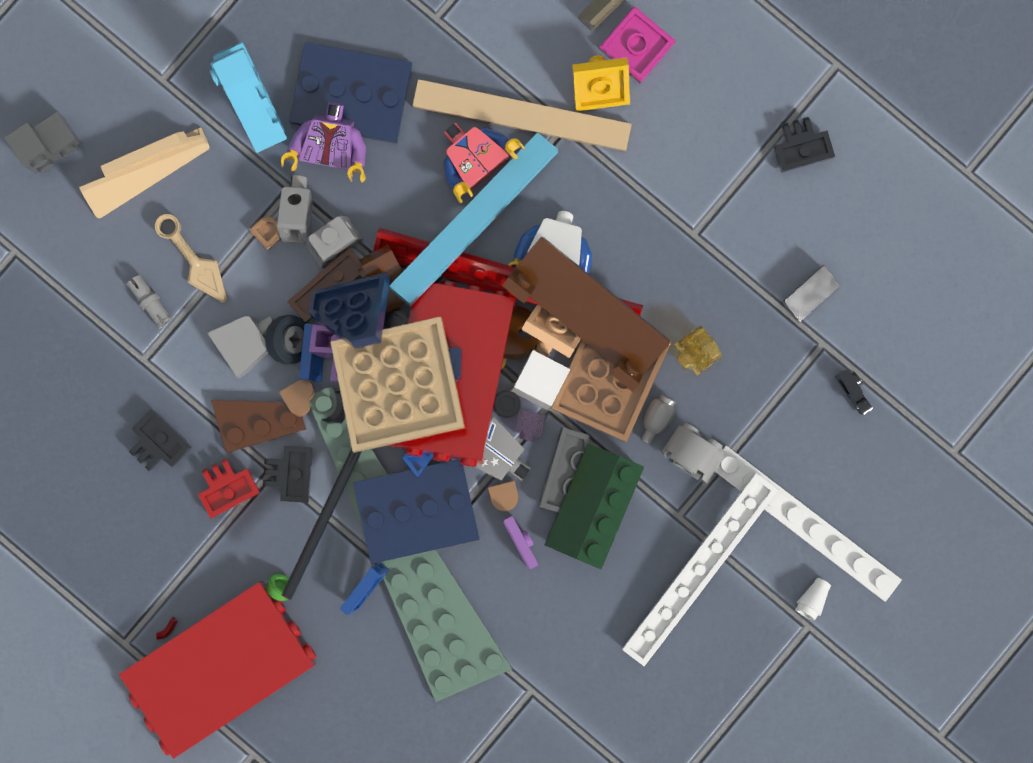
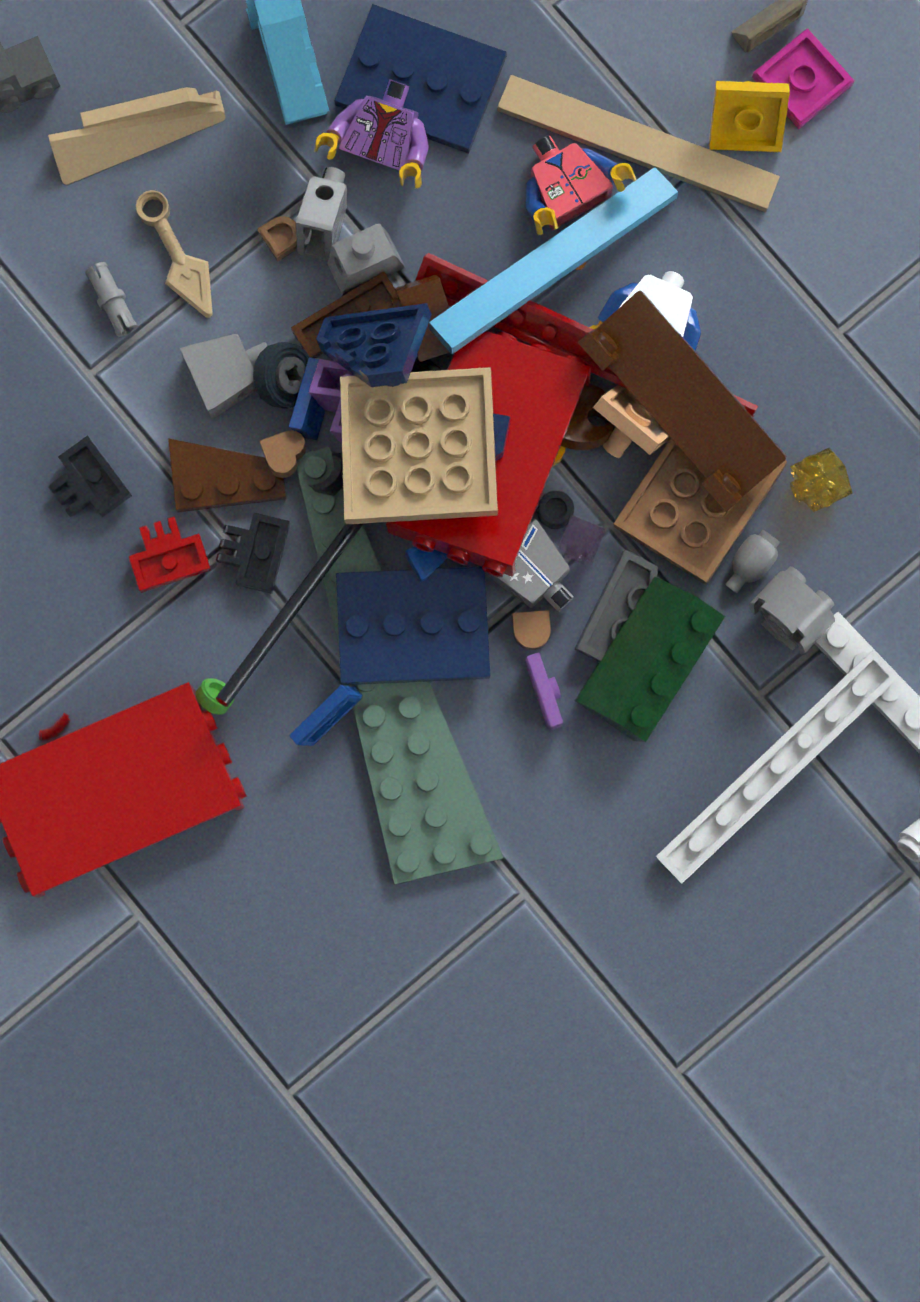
camera: 15 degrees right, 5 degrees down
(540, 380) = (605, 482): white head -> none

